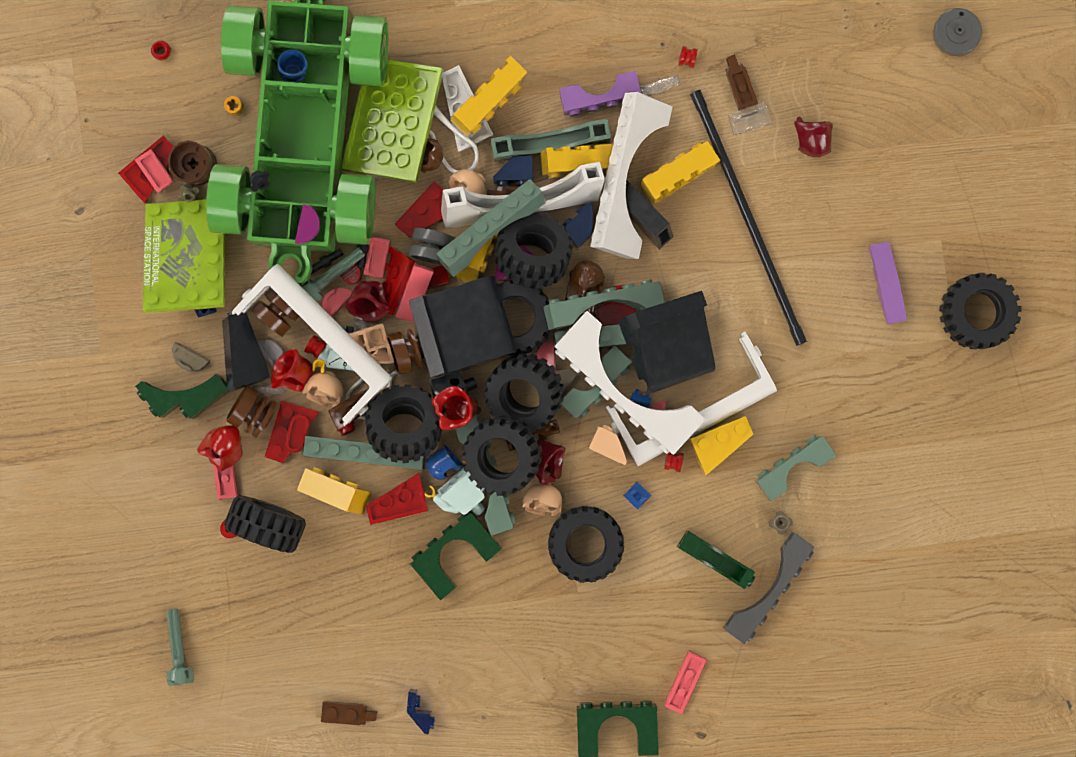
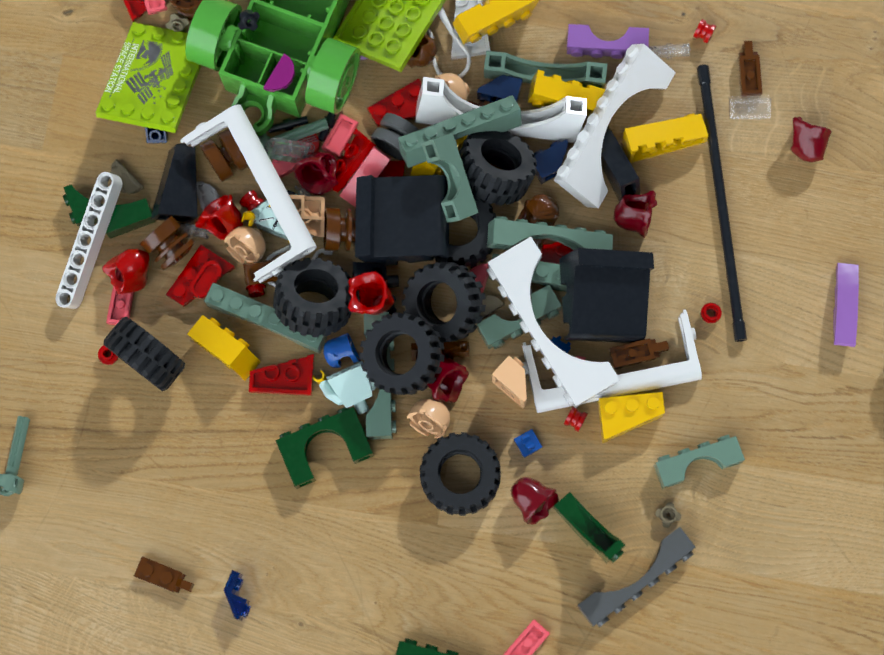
camera: 20 degrees right, 10 degrees down
(182, 423) = (97, 234): none -> white beam
(333, 290) = (286, 150): none -> clear slope
(510, 295) = (459, 199): none -> sand green arch
(657, 546) = (530, 495): none -> dark red piece
(674, 253) = (635, 212): none -> dark red piece
(711, 383) = (637, 352): none -> reddish brown hinge
(774, 326) = (715, 308): none -> red plate

